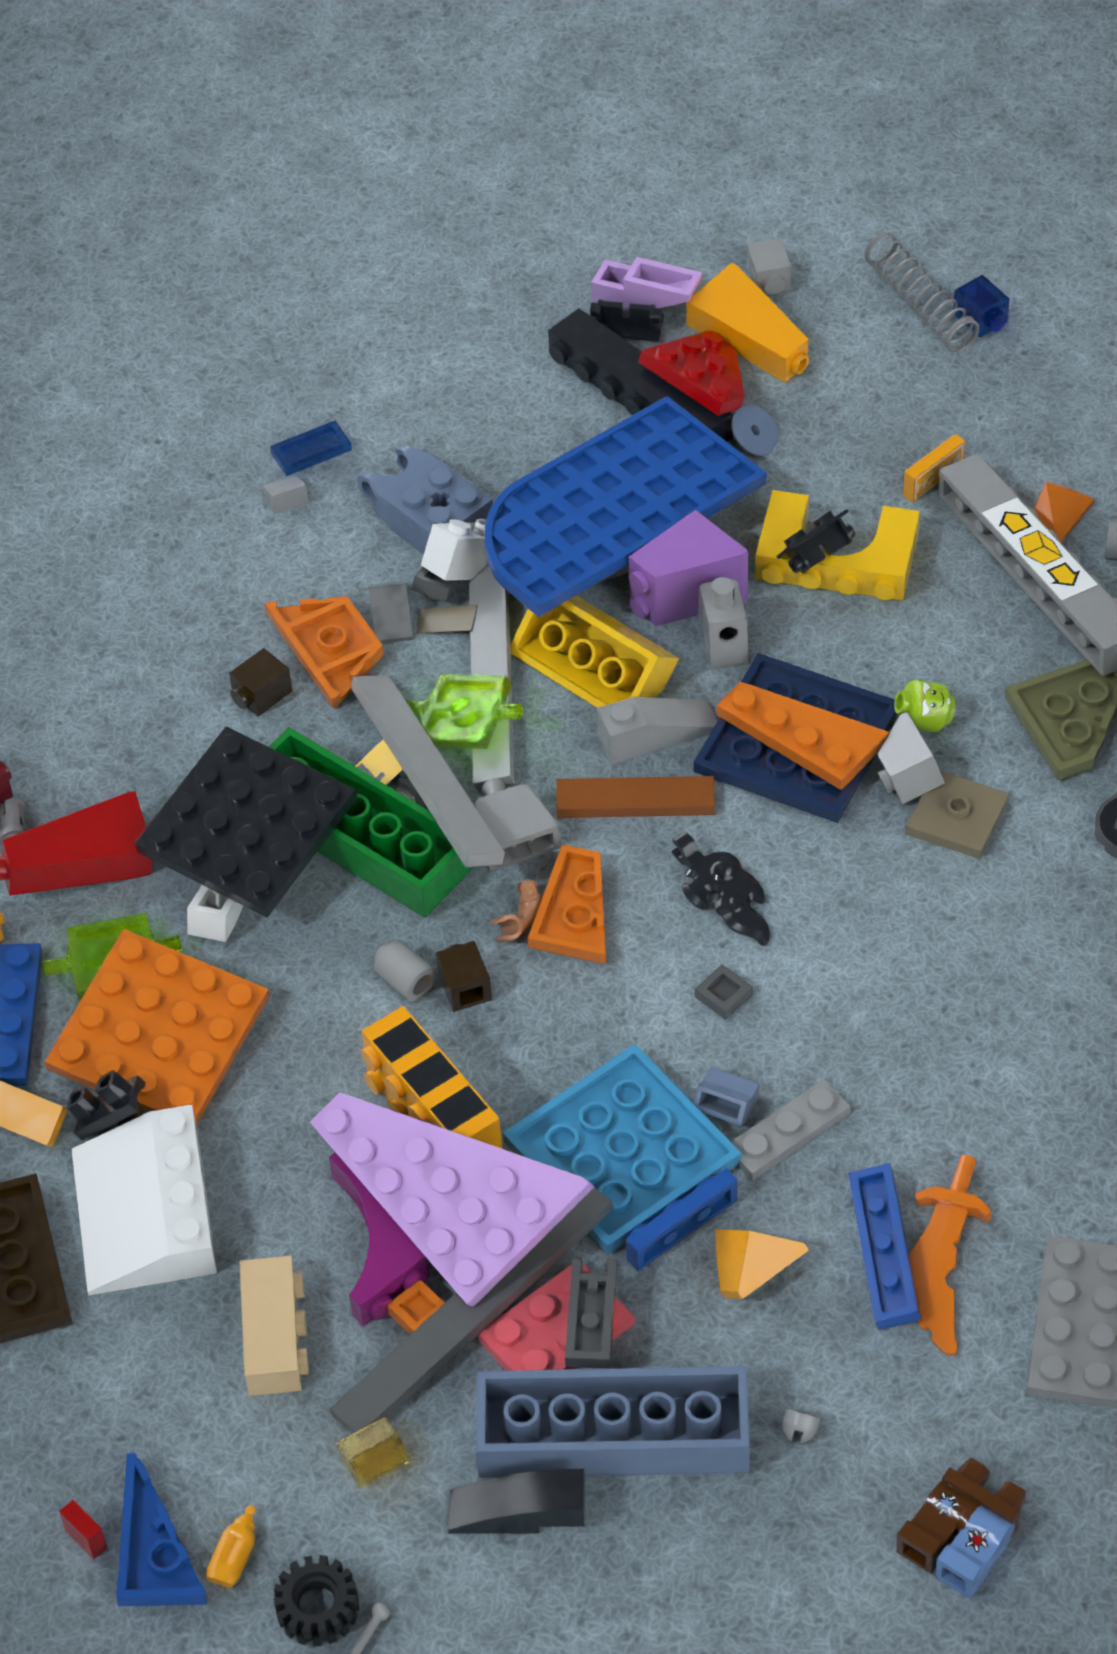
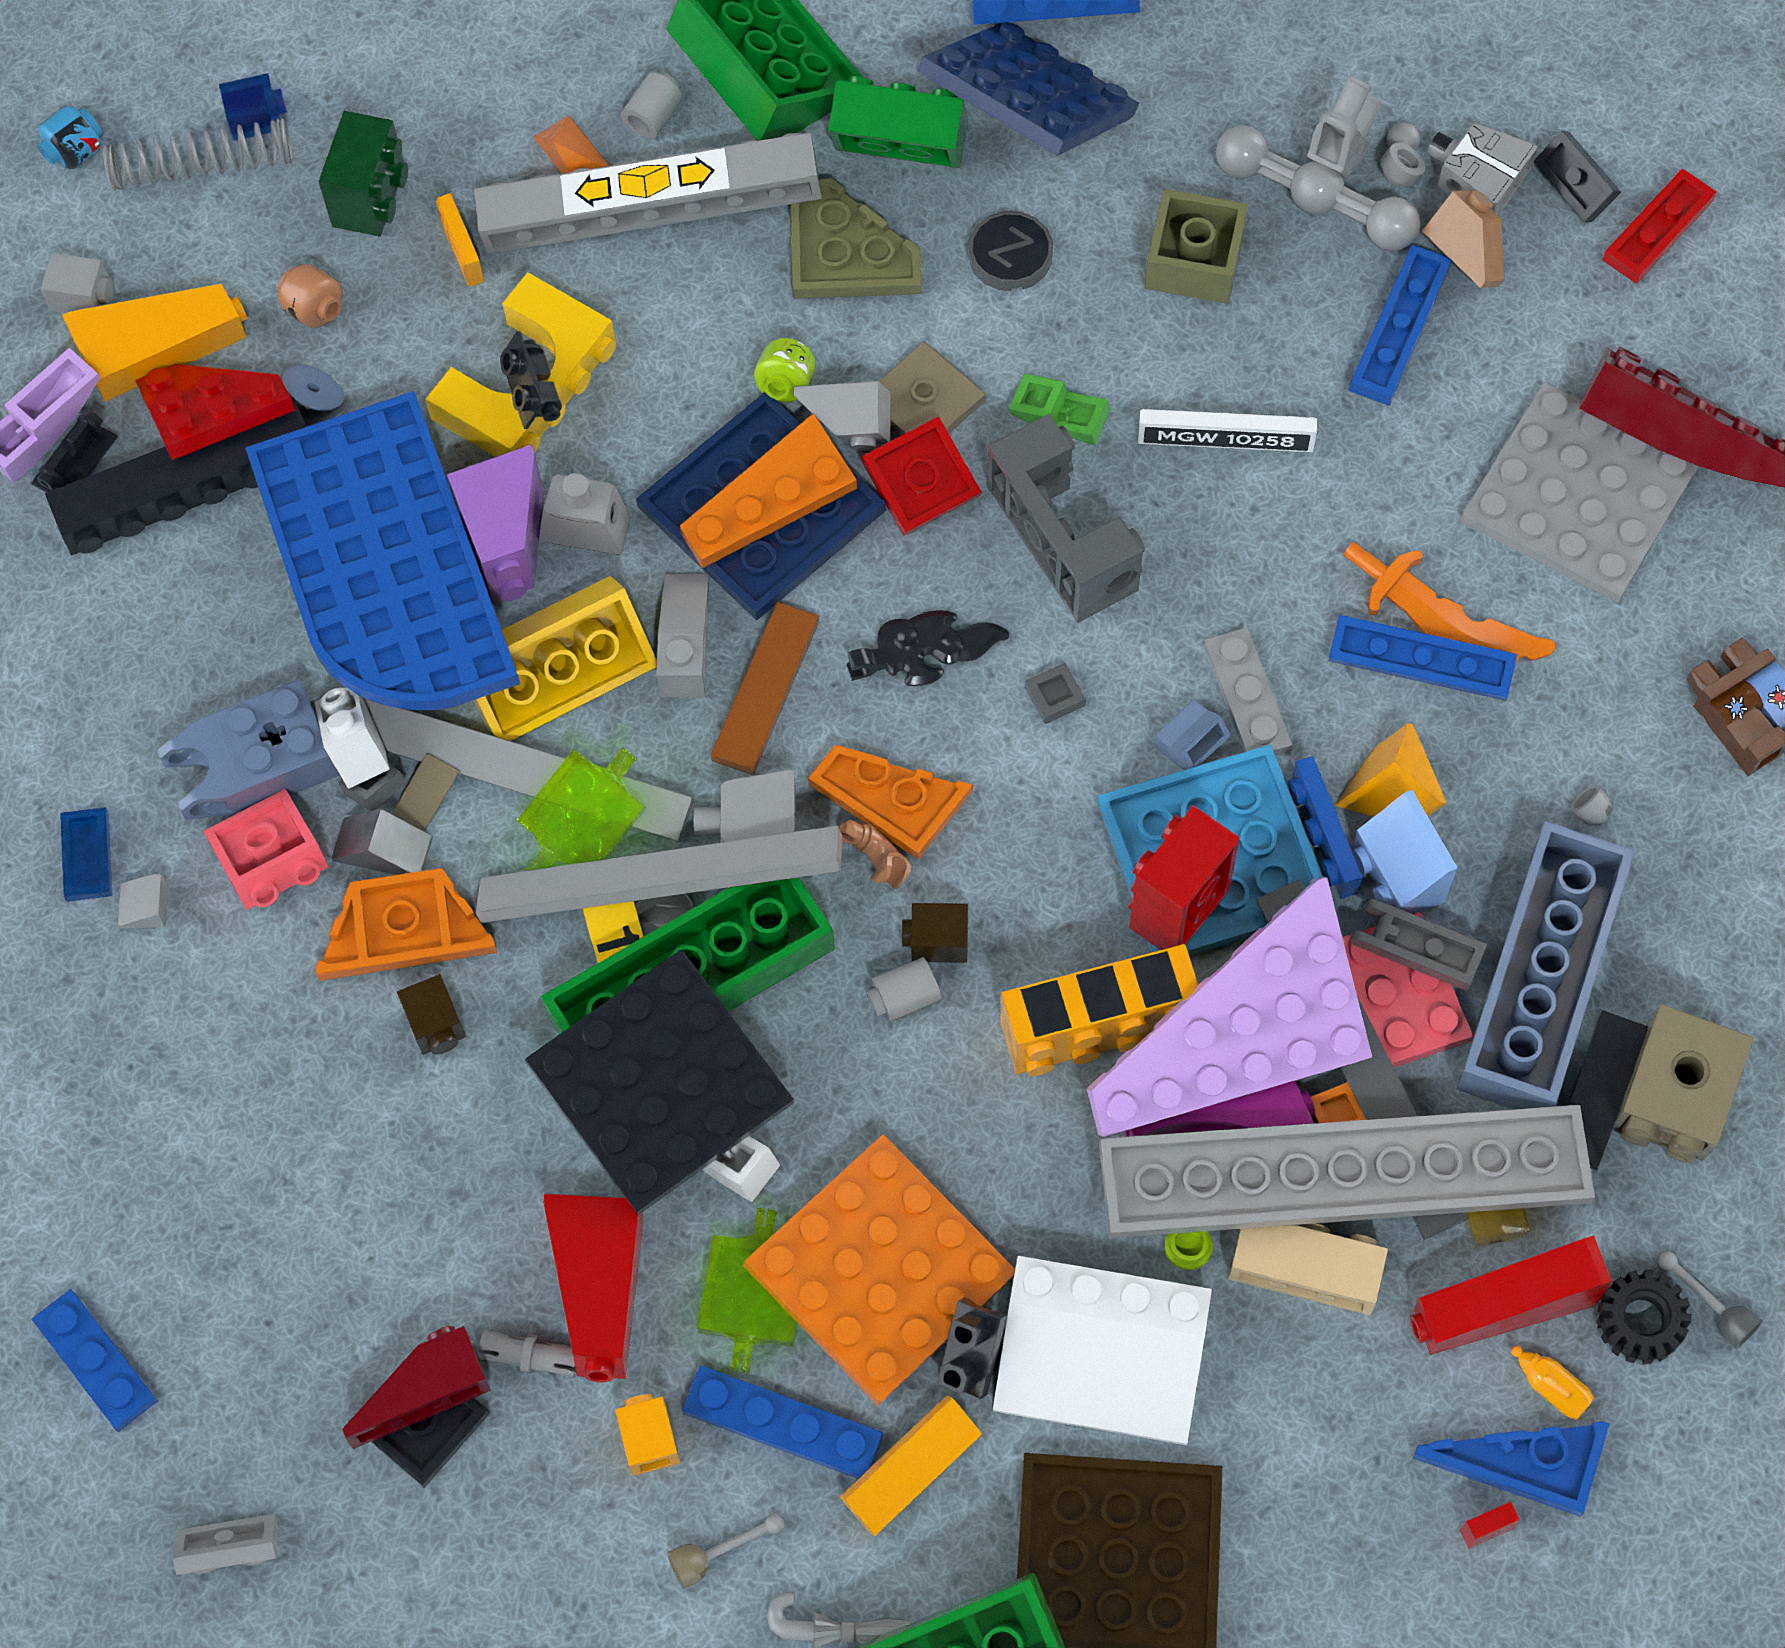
camera: 70 degrees left, 15 degrees up
(258, 1238) = (1189, 1250): none -> lime plate
(292, 1485) = (1512, 1297): none -> red slope
(352, 540) = (266, 850): none -> coral plate
(354, 1318) = (1345, 1171): none -> light grey plate
(536, 1552) = (1678, 1114): none -> dark tan brick
(552, 1097) = (1182, 879): none -> red brick
(672, 1283) = (1405, 857): none -> light blue slope
(834, 395) = (310, 295): none -> nougat head
(875, 829) = (921, 476): none -> red plate
(893, 215) = (69, 137): none -> dark azure head
(903, 889) = (1085, 571): none -> dark grey plate
(951, 383) = (363, 174): none -> dark green brick
(997, 909) = (1079, 413): none -> bright green slope
(1036, 1030) = (1227, 430): none -> tile

